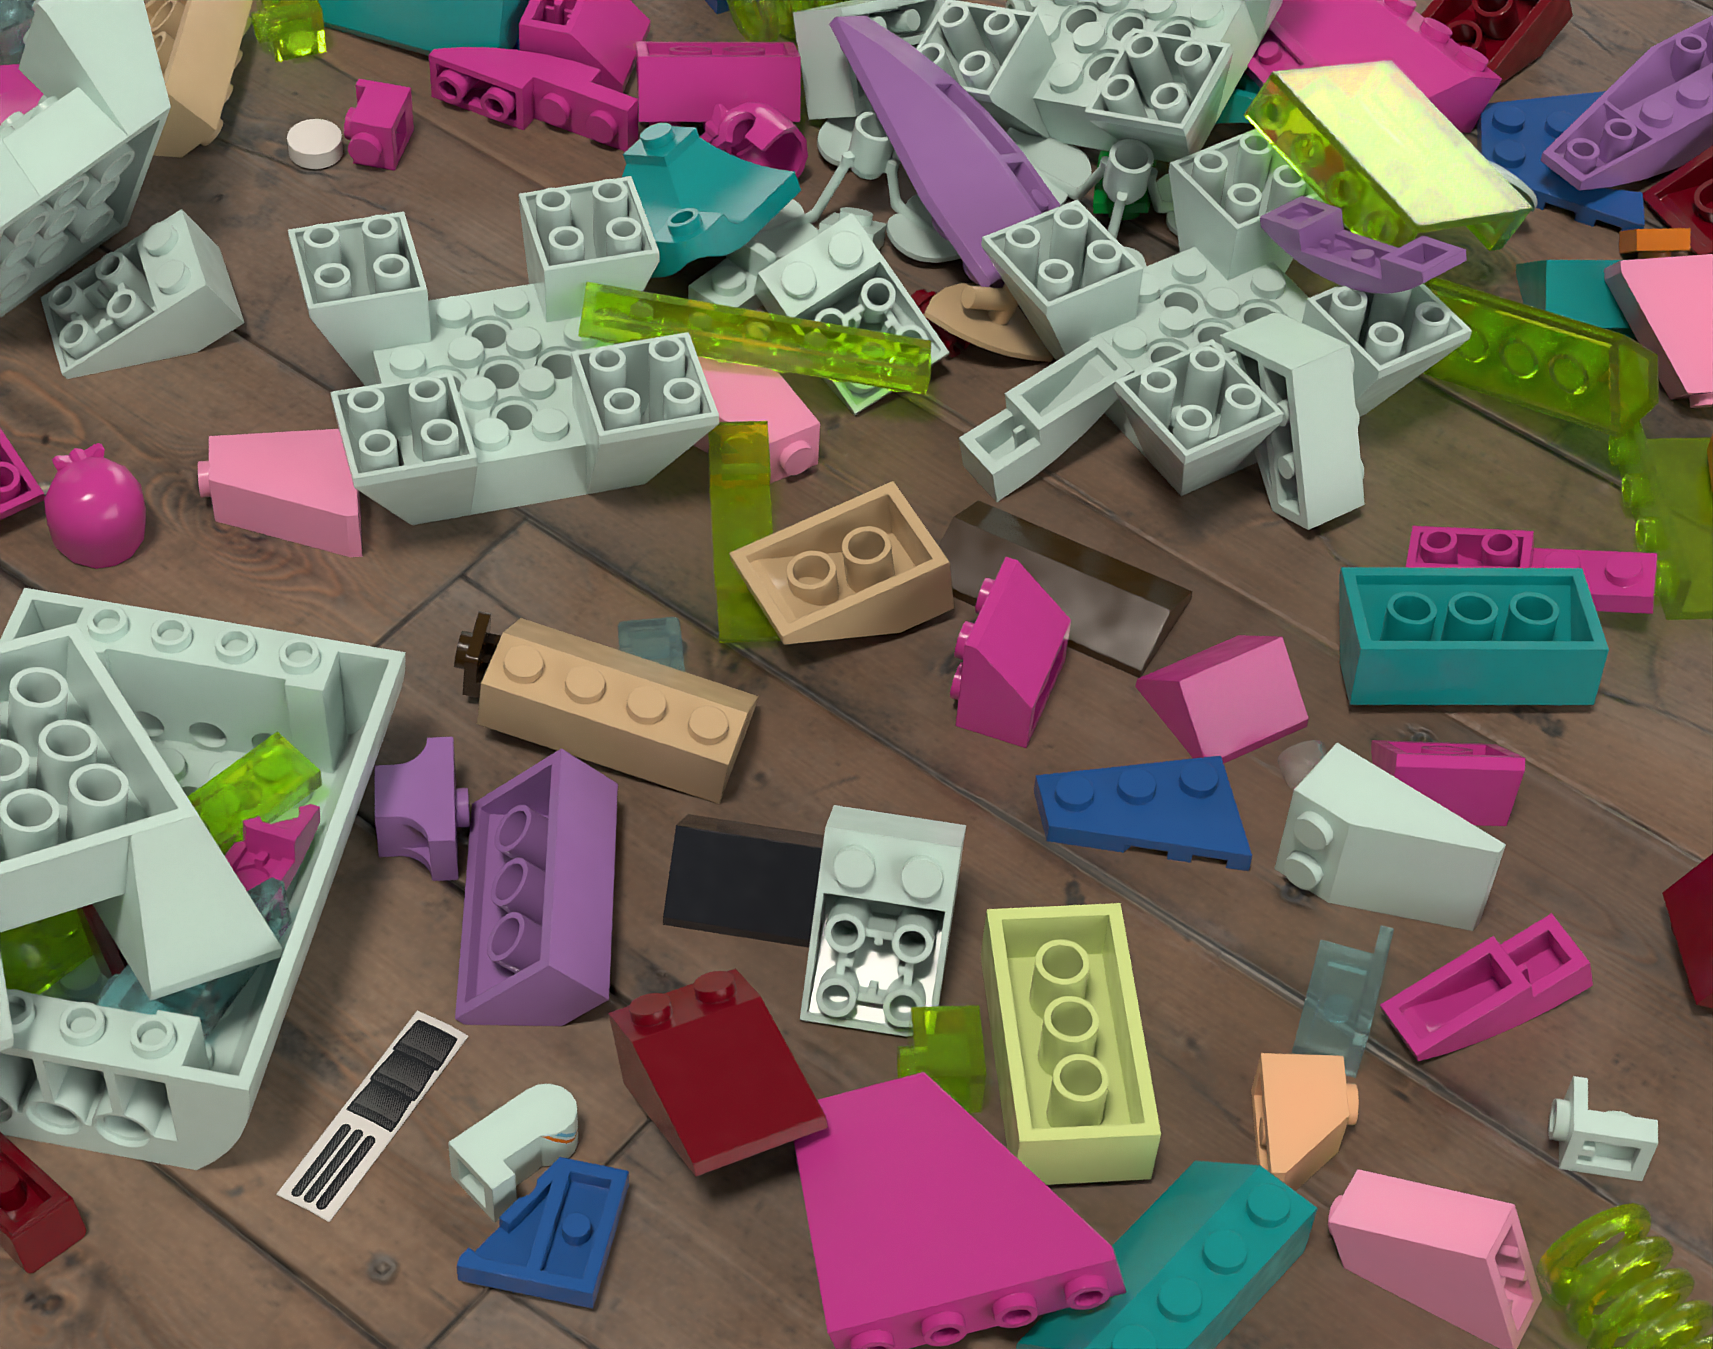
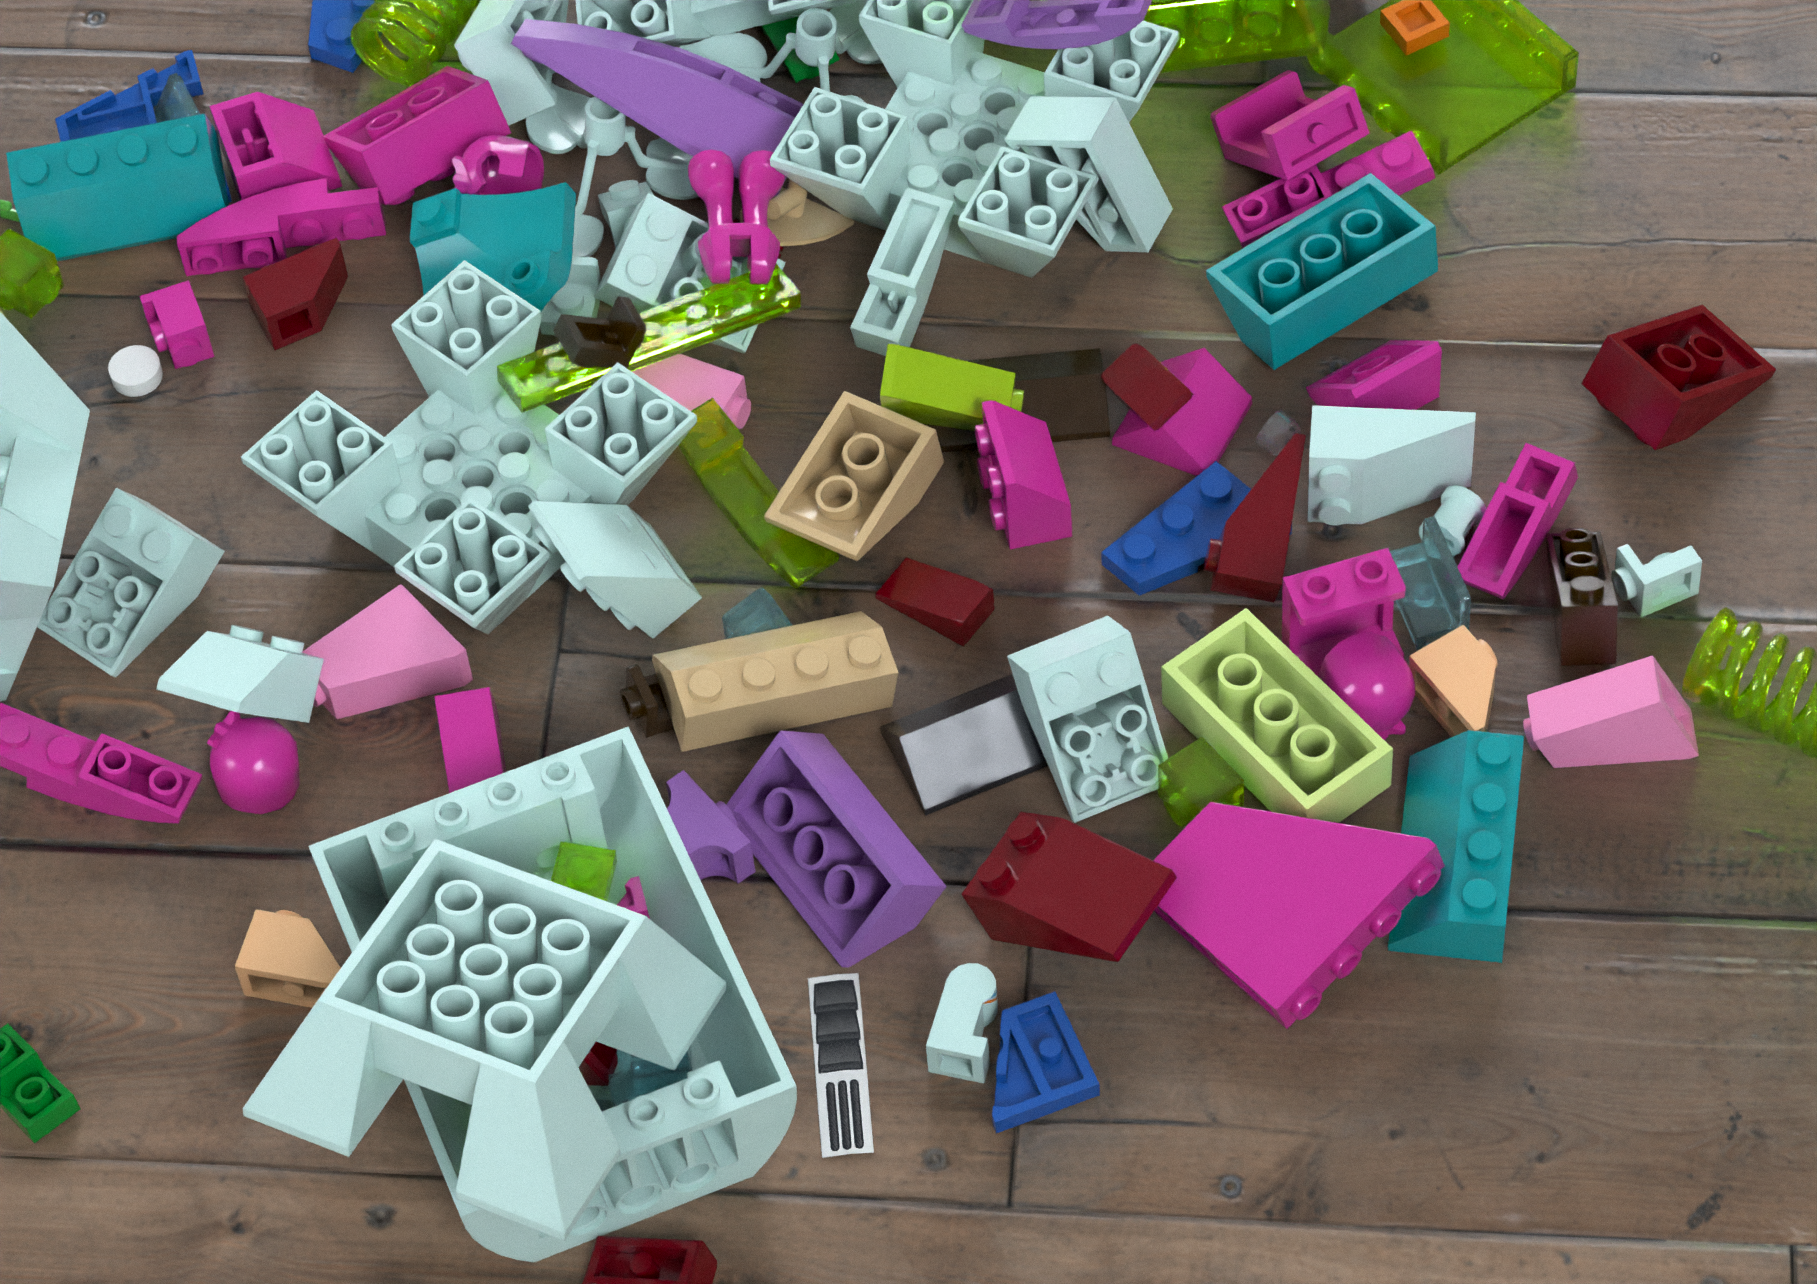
camera: 25 degrees left, 5 degrees up
(143, 426) = (247, 674): none -> light aqua slope
(294, 589) = (470, 737): none -> dark pink slope
(503, 152) = (297, 292): none -> dark red slope
(551, 511) = (617, 562): none -> light aqua slope
(691, 307) = (602, 341): none -> dark brown bracket
(844, 731) = (938, 599): none -> dark red slope
(927, 239) = (713, 181): none -> dark pink piece
(984, 527) = (943, 388): none -> lime slope
(1196, 640) = (1146, 386): none -> dark red slope
(1198, 1058) = (1371, 680): none -> dark pink helmet
(1202, 839) = (1256, 536): none -> dark red slope
(1215, 975) = (1338, 602): none -> dark pink panel
(1422, 950) = (1456, 516): none -> light aqua bush
(1500, 1108) = (1582, 598): none -> dark brown slope
(1534, 484) = (1286, 131): none -> dark pink panel

